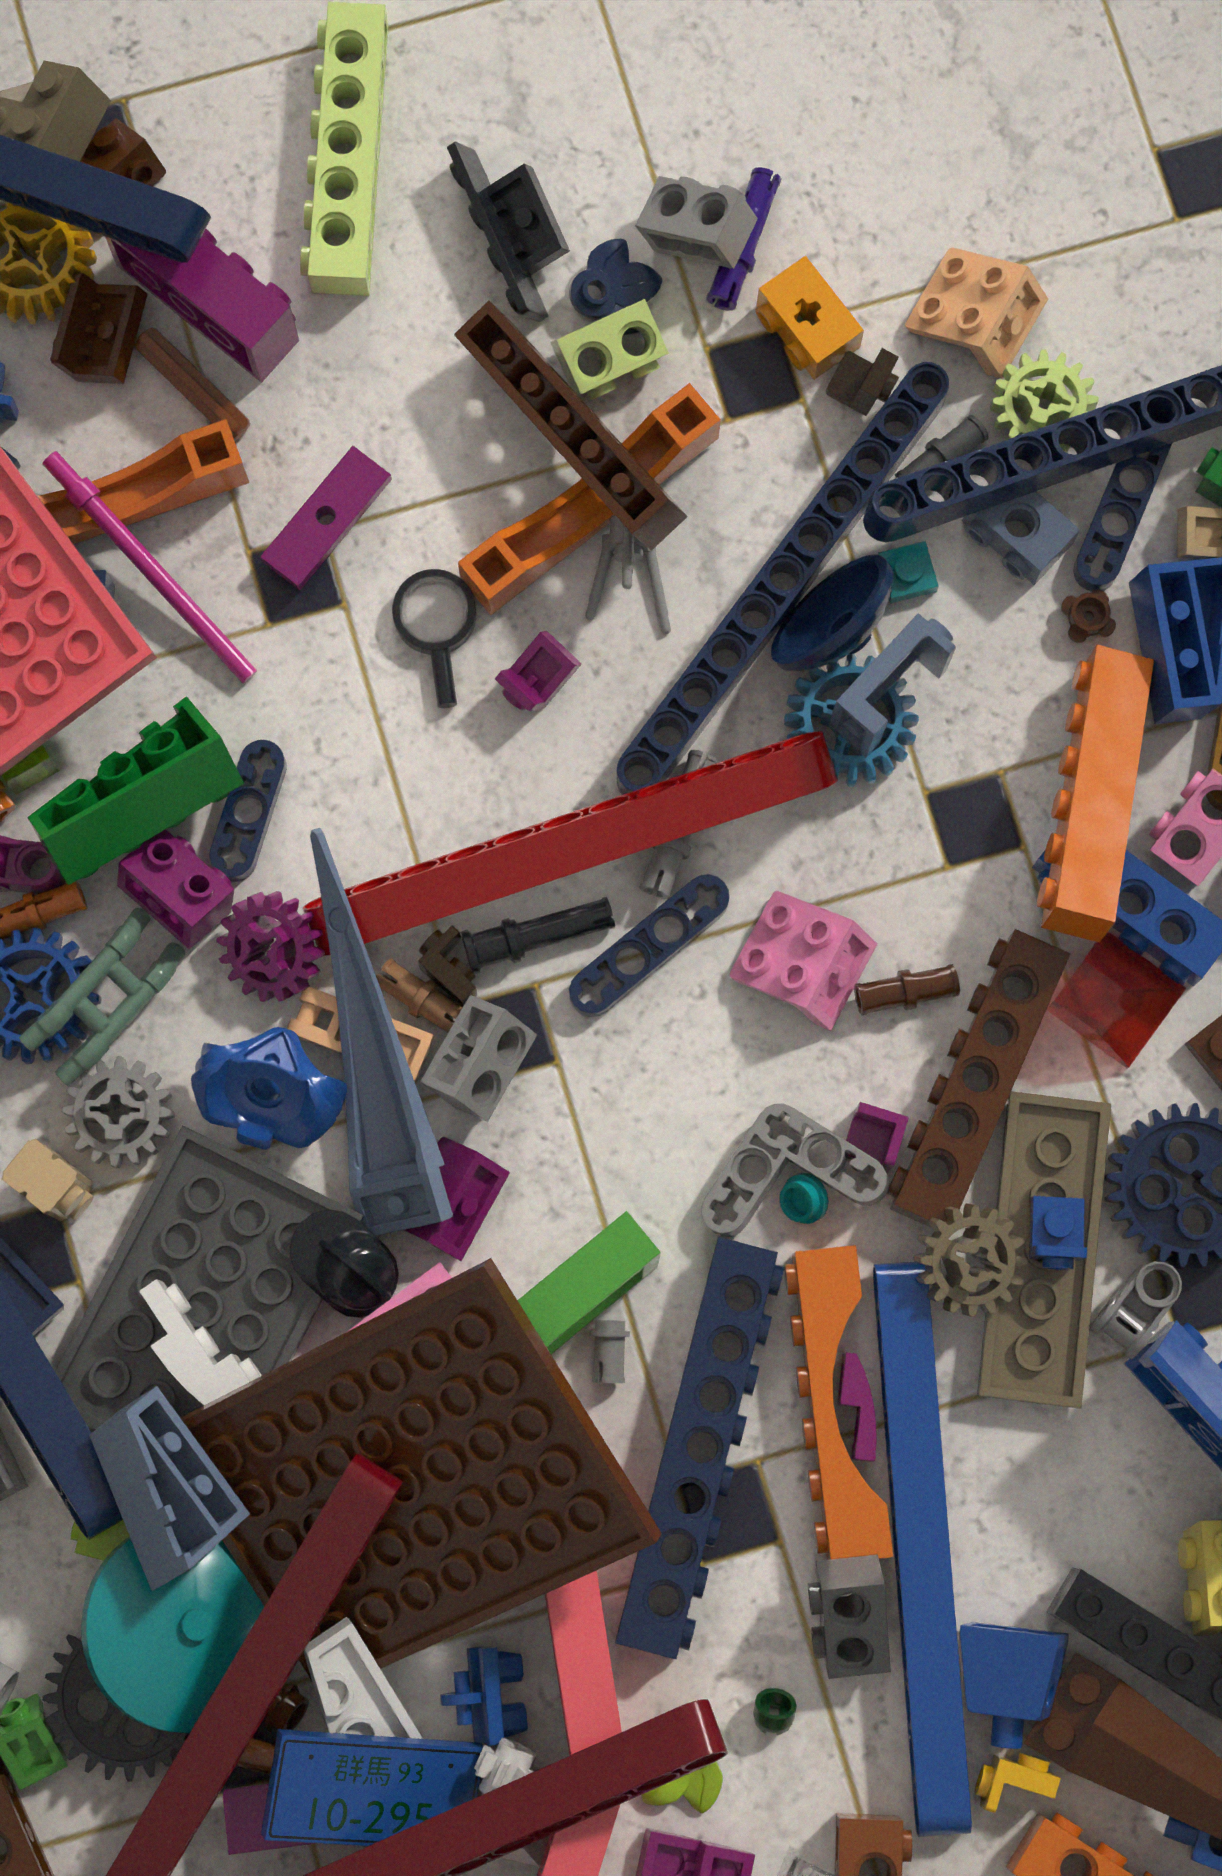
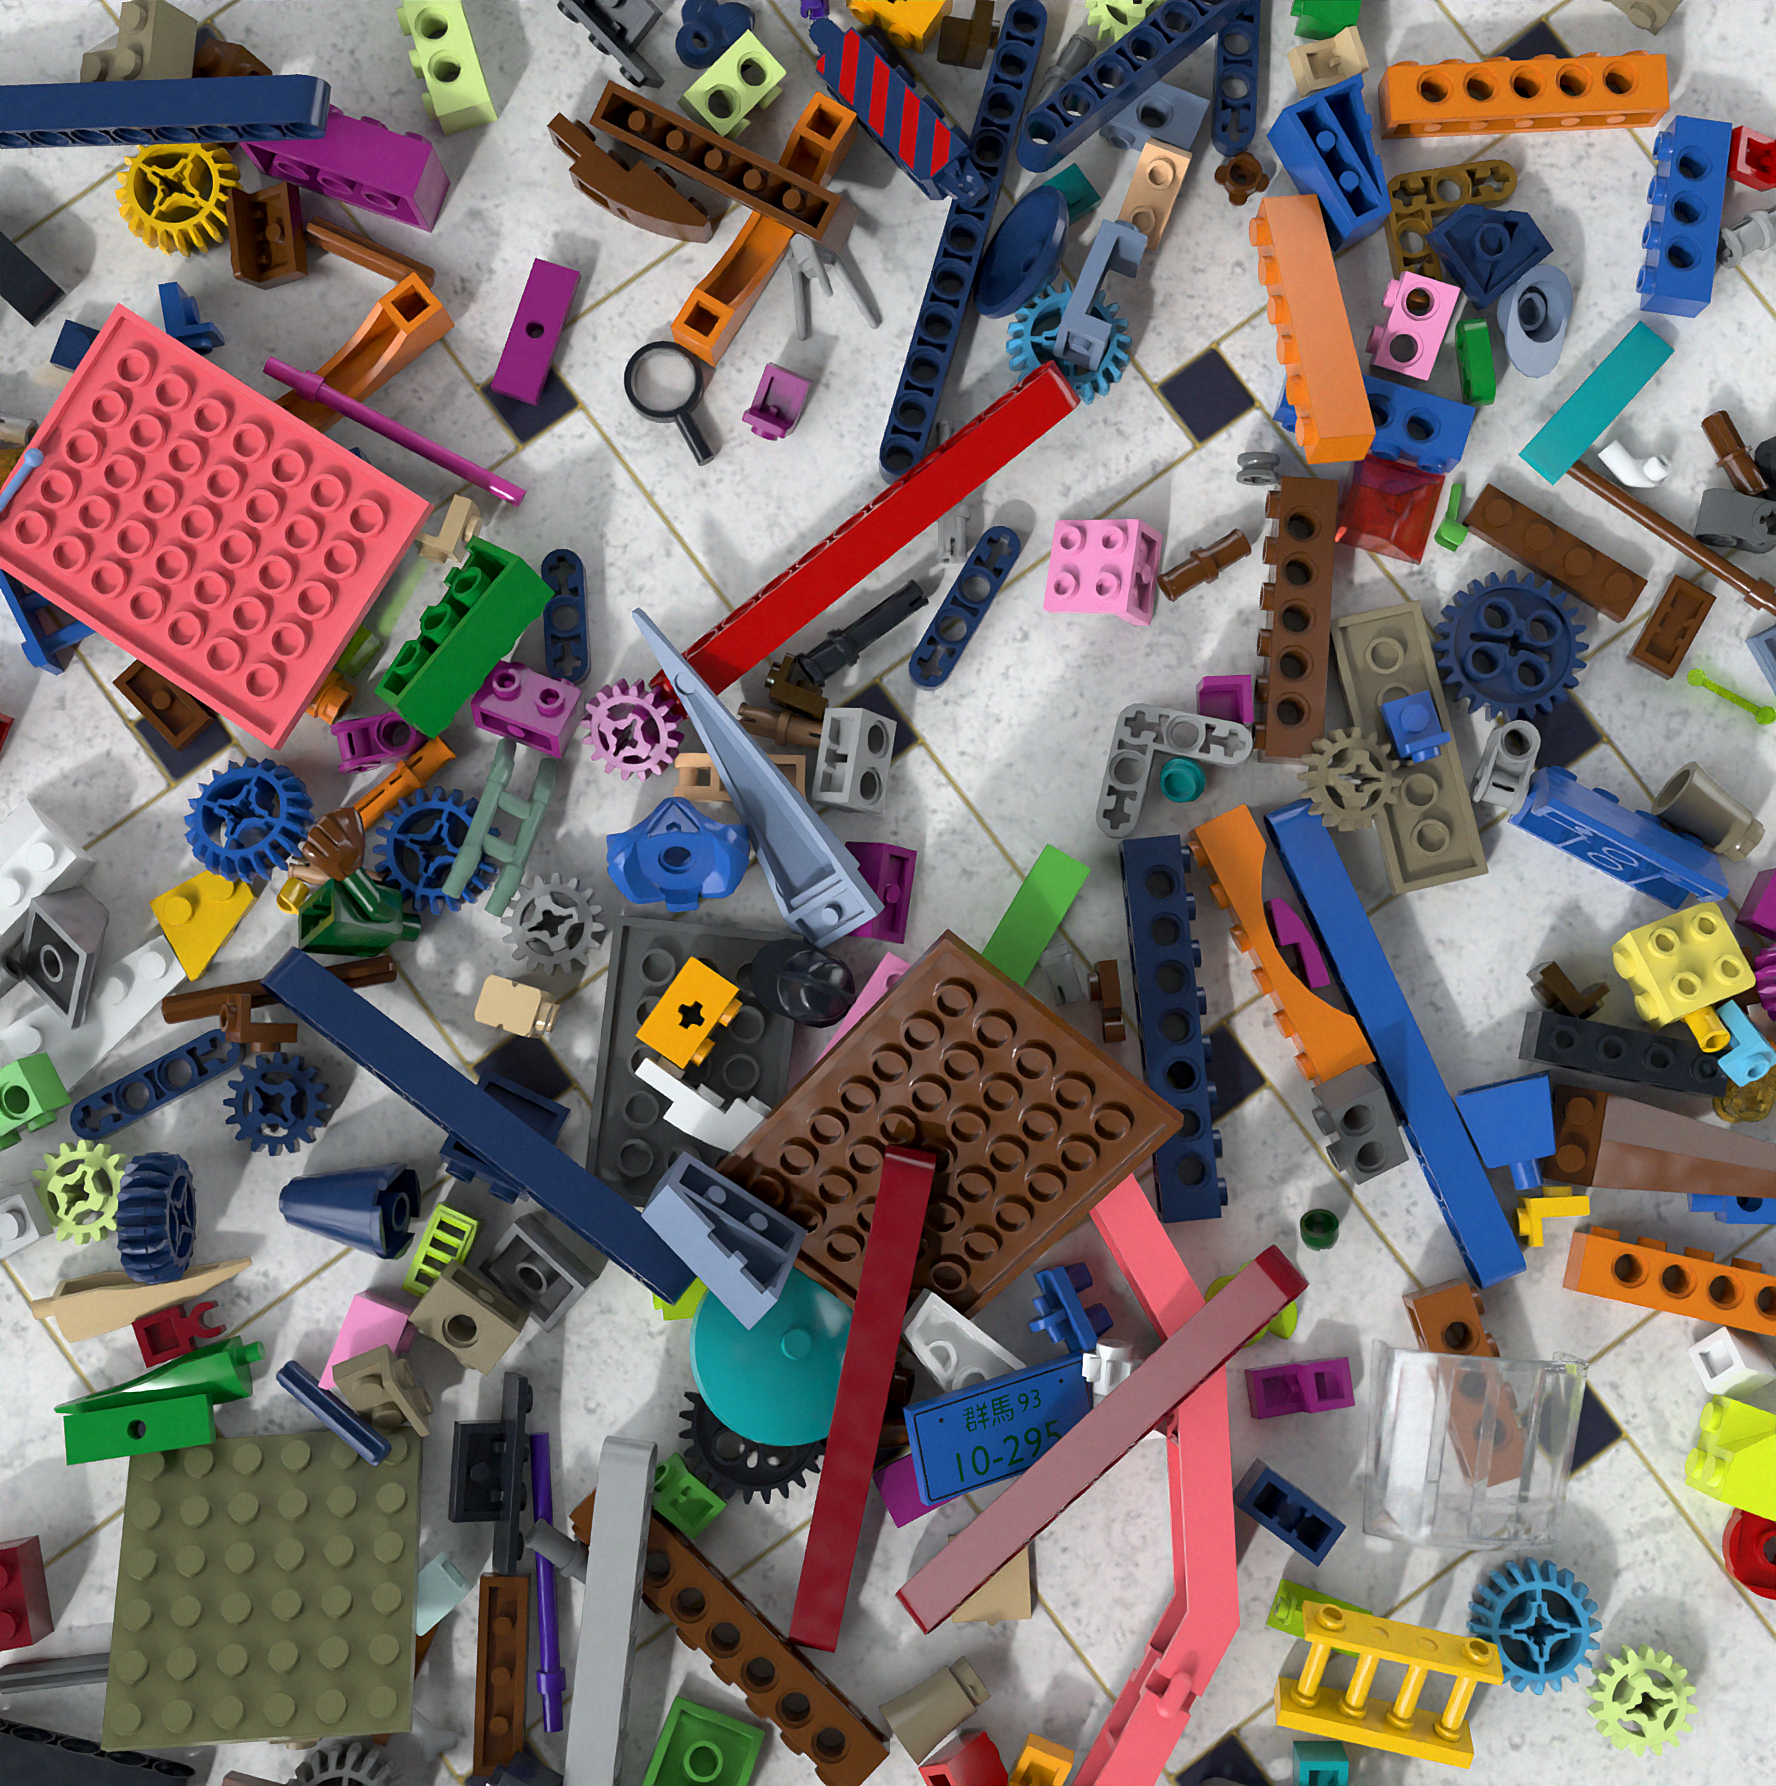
camera: 20 degrees left, 5 degrees up
(174, 684) = (458, 527): none -> tan bracket
(230, 1225) = (665, 1024): none -> light orange brick
(477, 421) = (635, 195): none -> reddish brown slope
(646, 1381) = (1105, 988): none -> reddish brown plate
(759, 434) = (895, 116): none -> dark blue hinge
(989, 600) = (1155, 189): none -> light nougat brick
(996, 912) = (1258, 468): none -> dark grey bush
(1106, 1554) = (1557, 992): none -> dark brown bracket
(1170, 1046) = (1451, 533): none -> bright green hand

